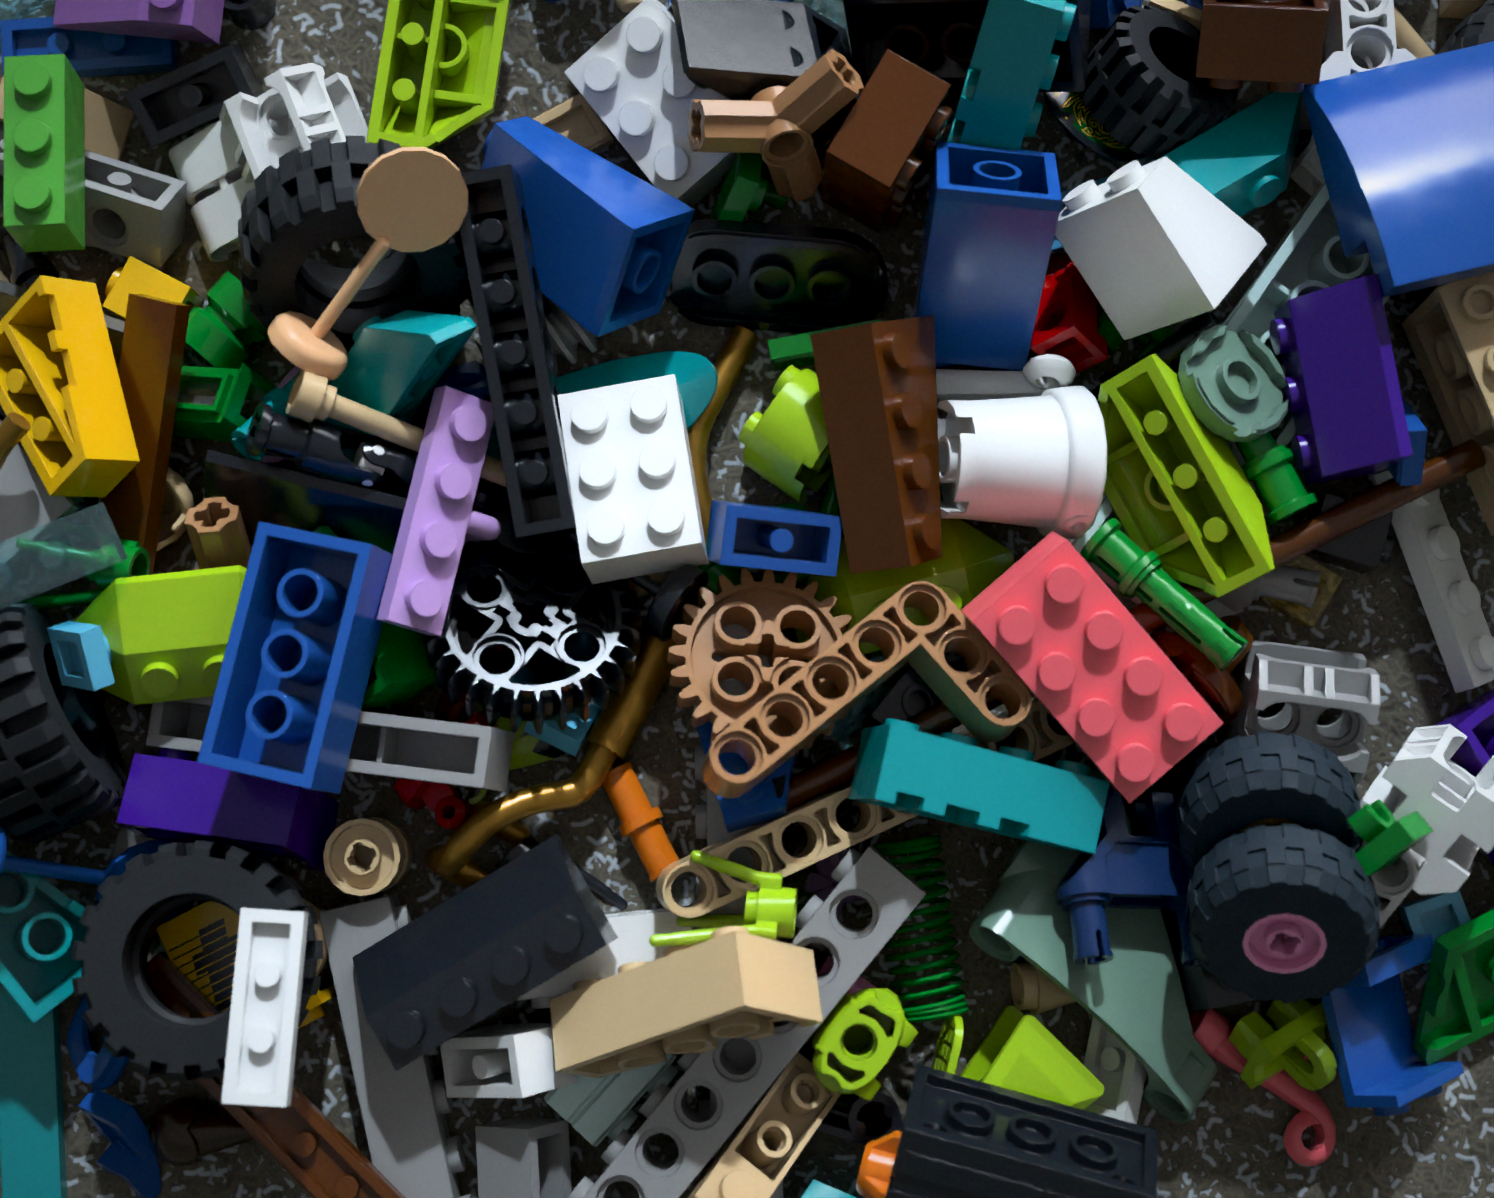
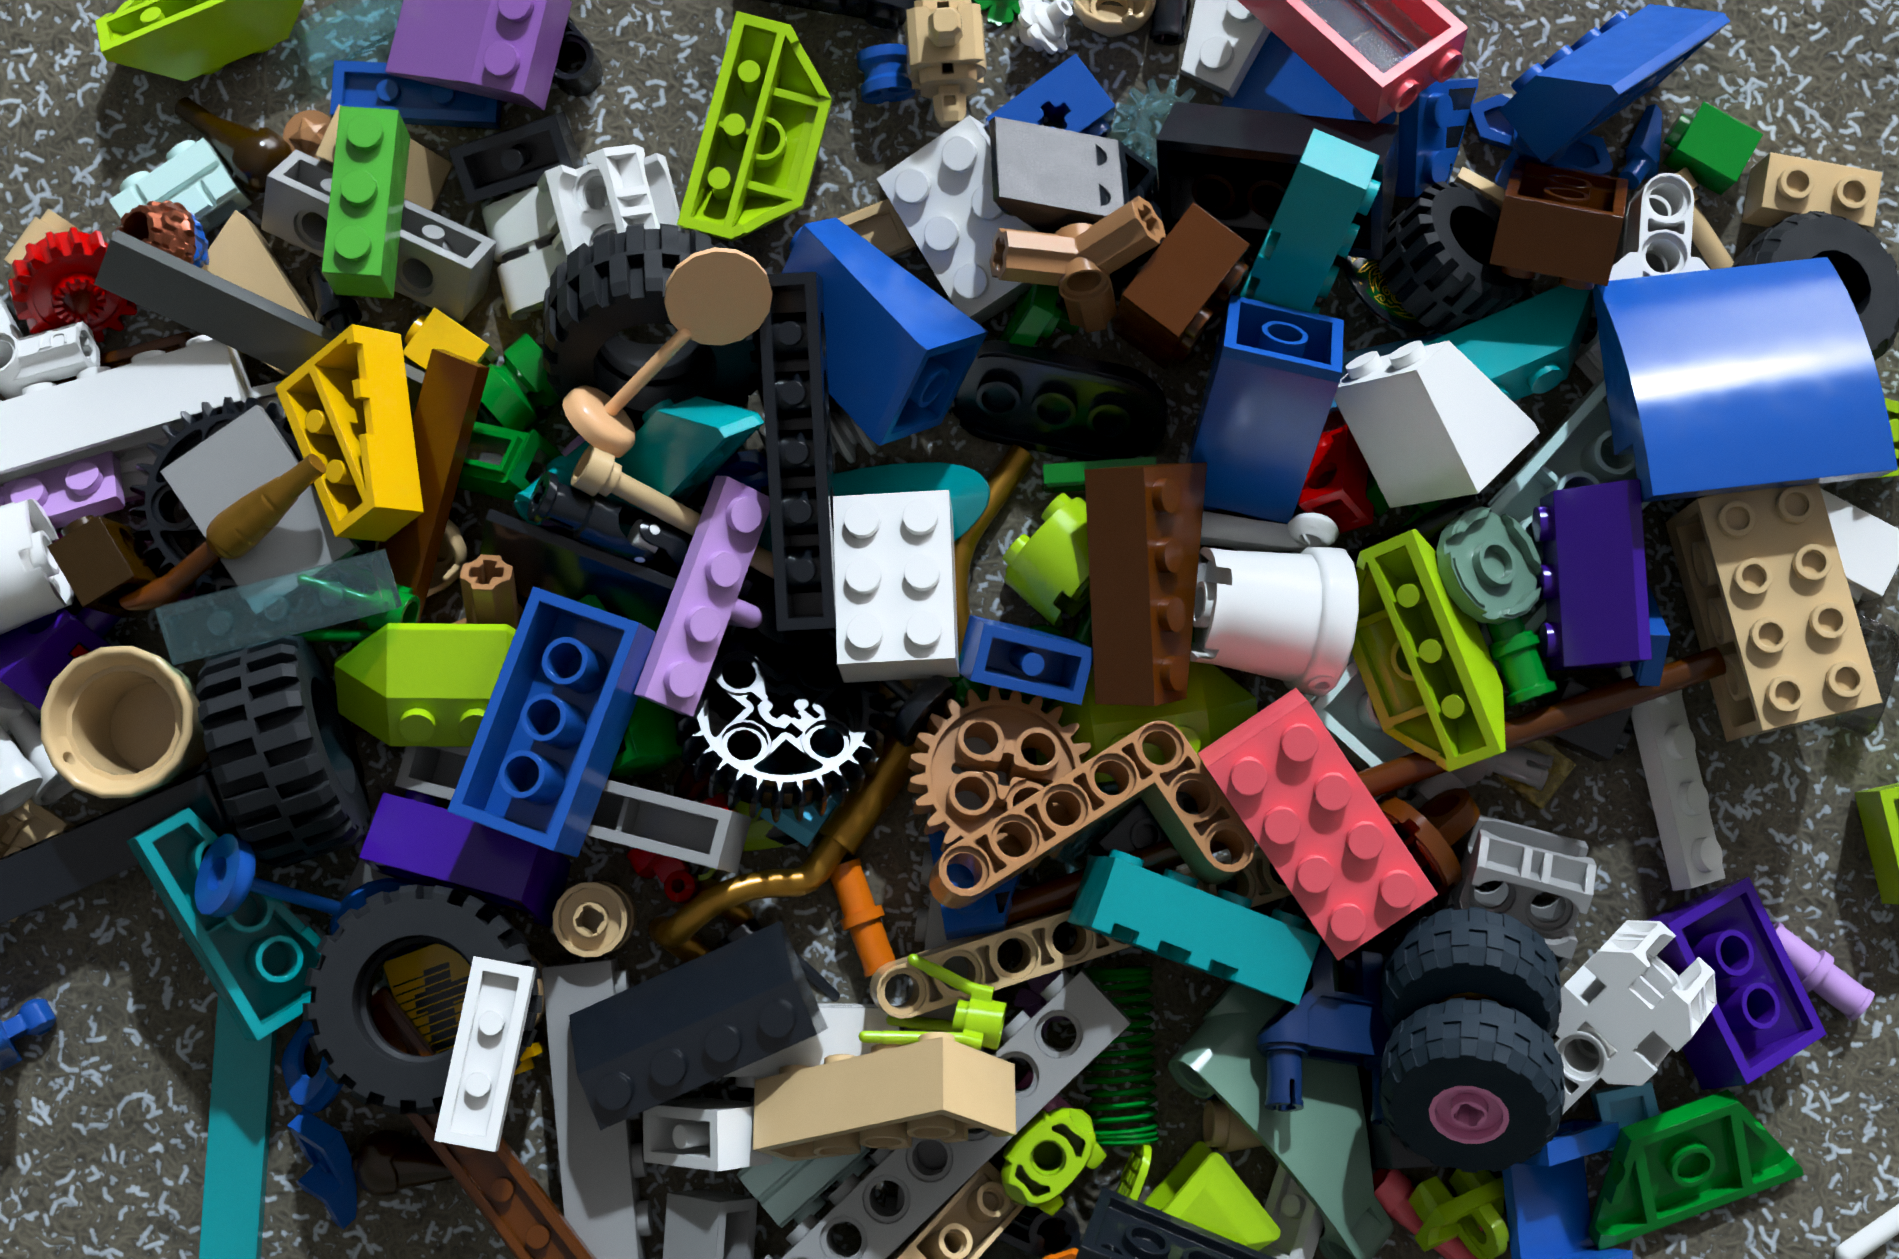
camera: 10 degrees right, 0 degrees up
(81, 655) = (345, 693): medium azure plate -> none
(1141, 577) = (1377, 742): green pin -> none
(1385, 835) = (1580, 1023): green tile -> none

